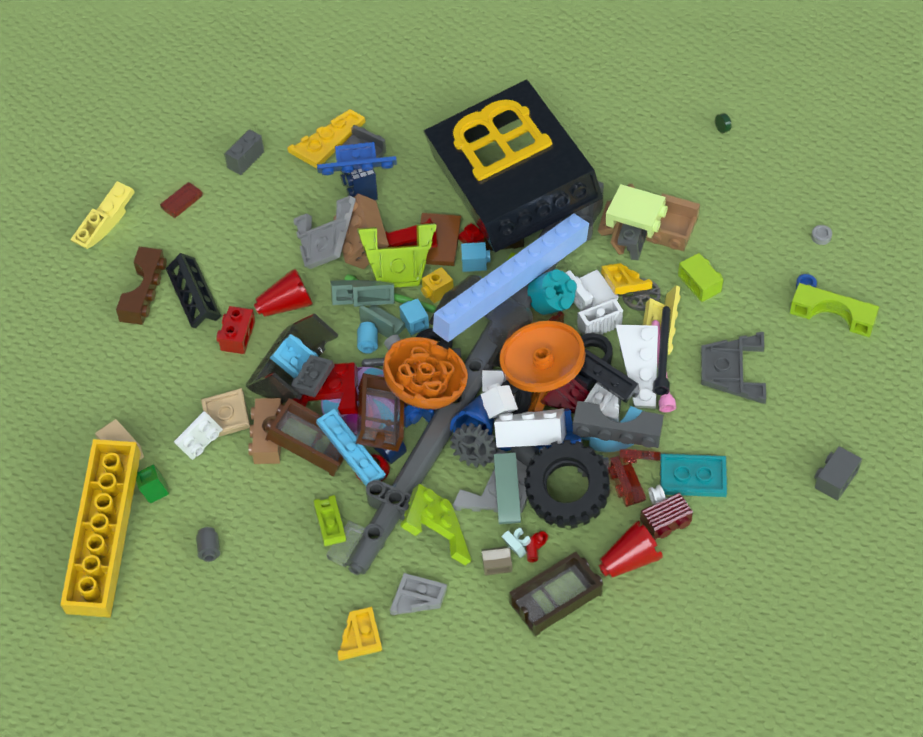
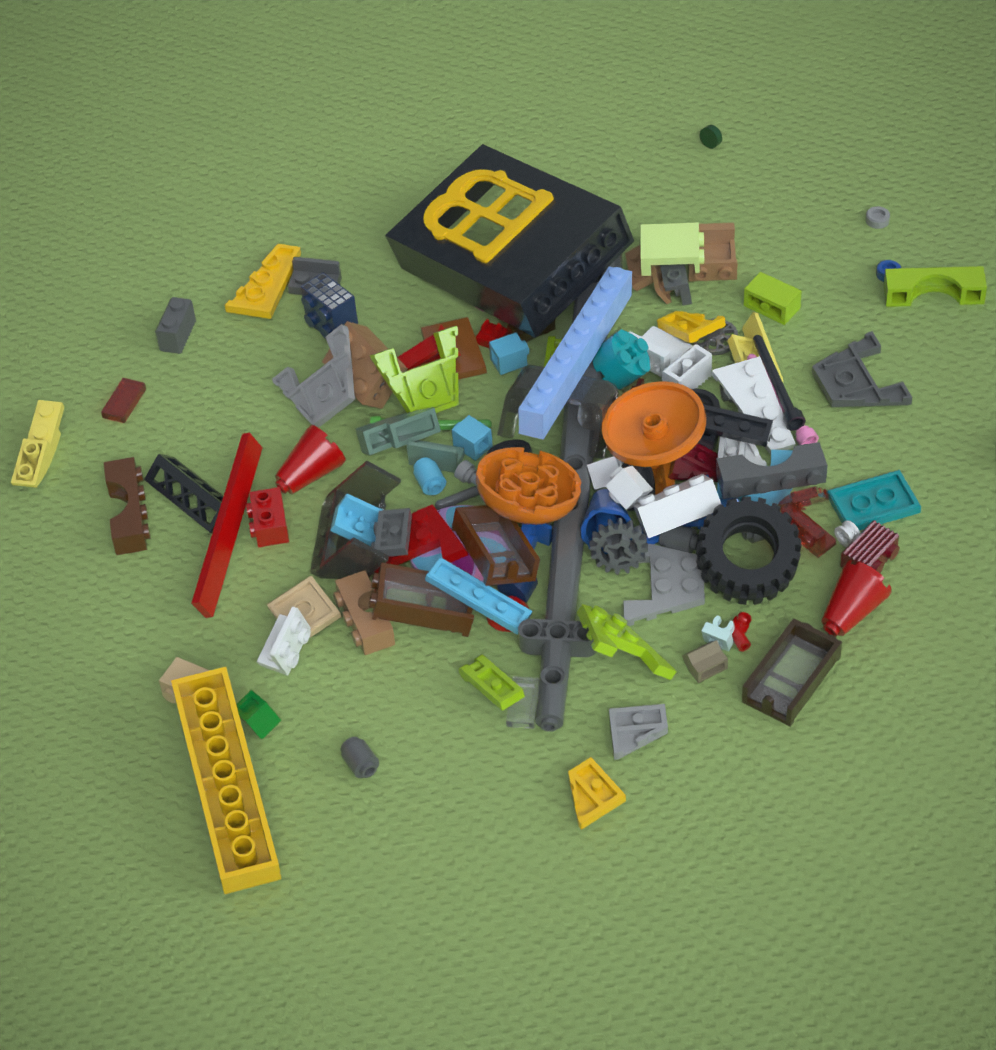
camera: 20 degrees left, 5 degrees down
(201, 327) = (227, 526): none -> red tile
(356, 157) = (325, 283): blue bracket -> none
(436, 285) = (481, 396): yellow brick -> none
(507, 488) = (681, 578): sand green slope -> none

